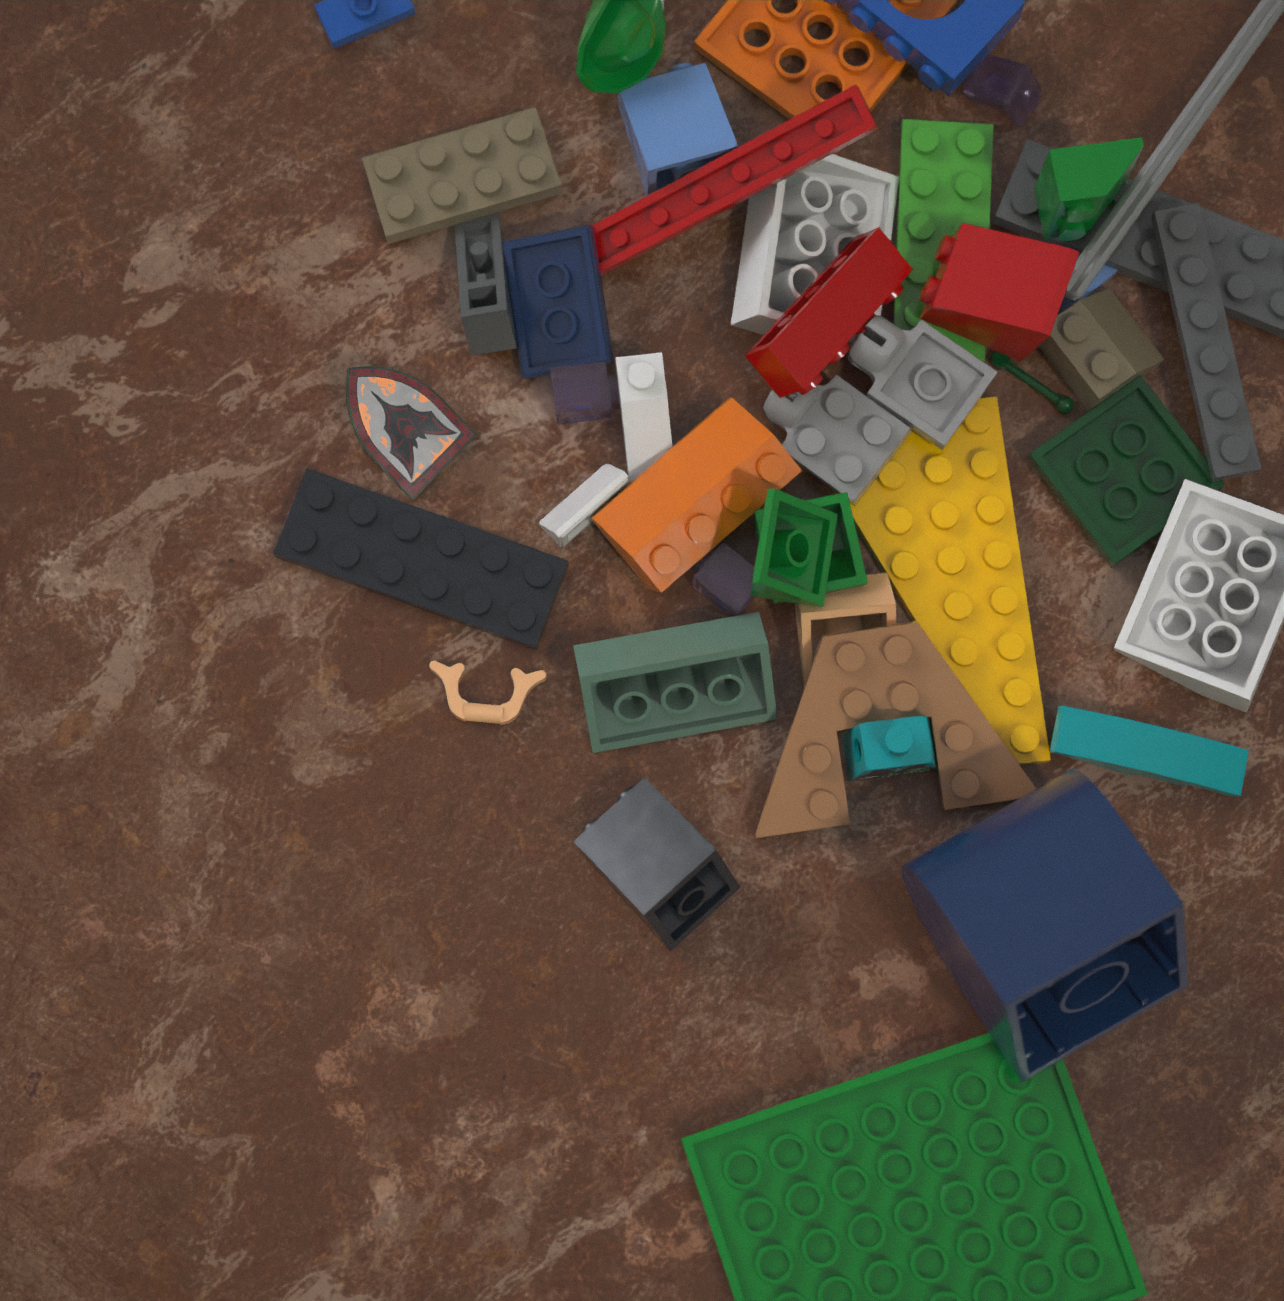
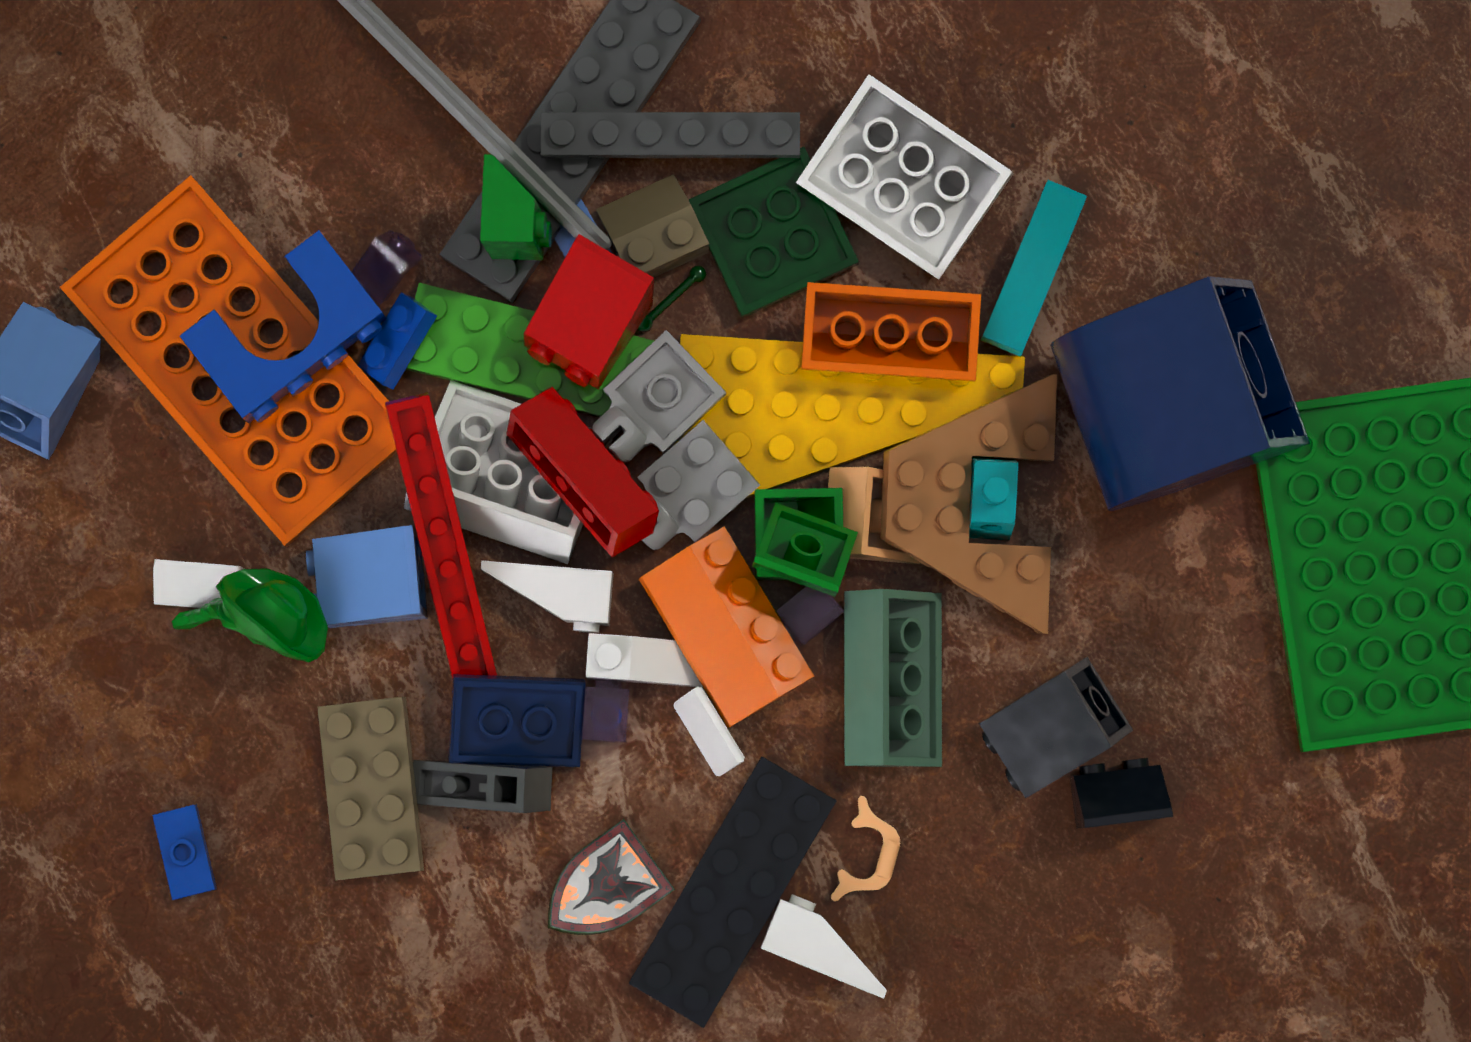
camera: 80 degrees left, 5 degrees up
(379, 651) = (811, 942): none -> white slope
(595, 942) = (1119, 795): none -> black slope
(700, 331) = (566, 592): none -> white slope
(928, 111) = (397, 341): none -> blue plate
(1047, 607) = (891, 331): none -> orange slope

